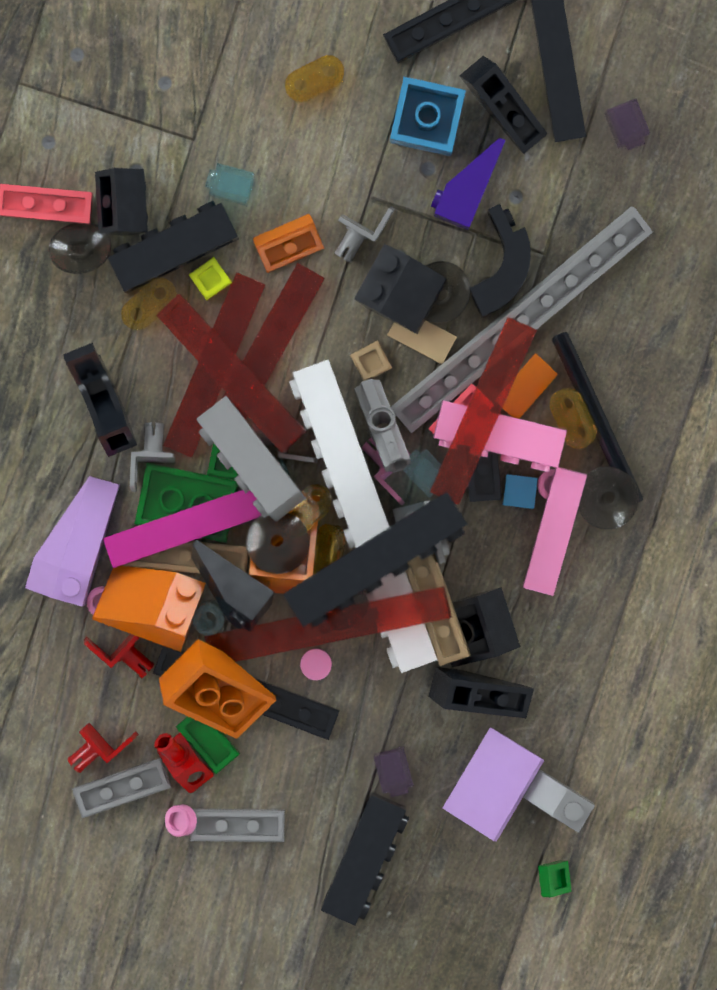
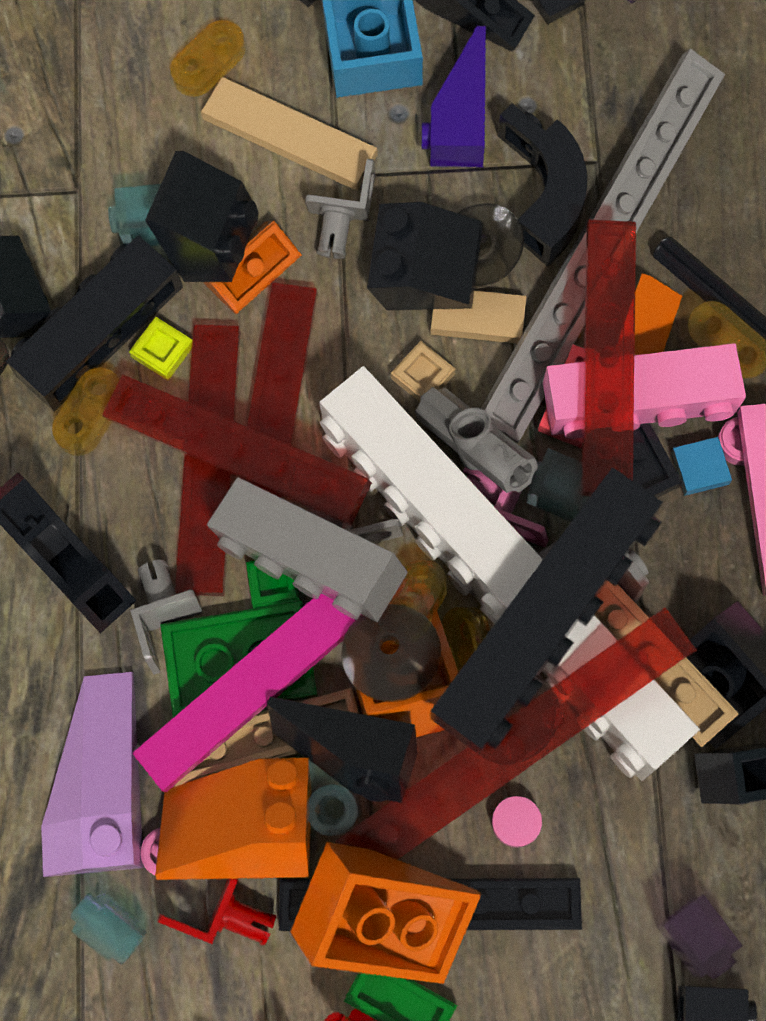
camera: 15 degrees left, 15 degrees down
(53, 633) = (107, 927): none -> clear light blue brick
(266, 211) = (202, 219): none -> black slope
(348, 157) = (288, 133): none -> tan tile

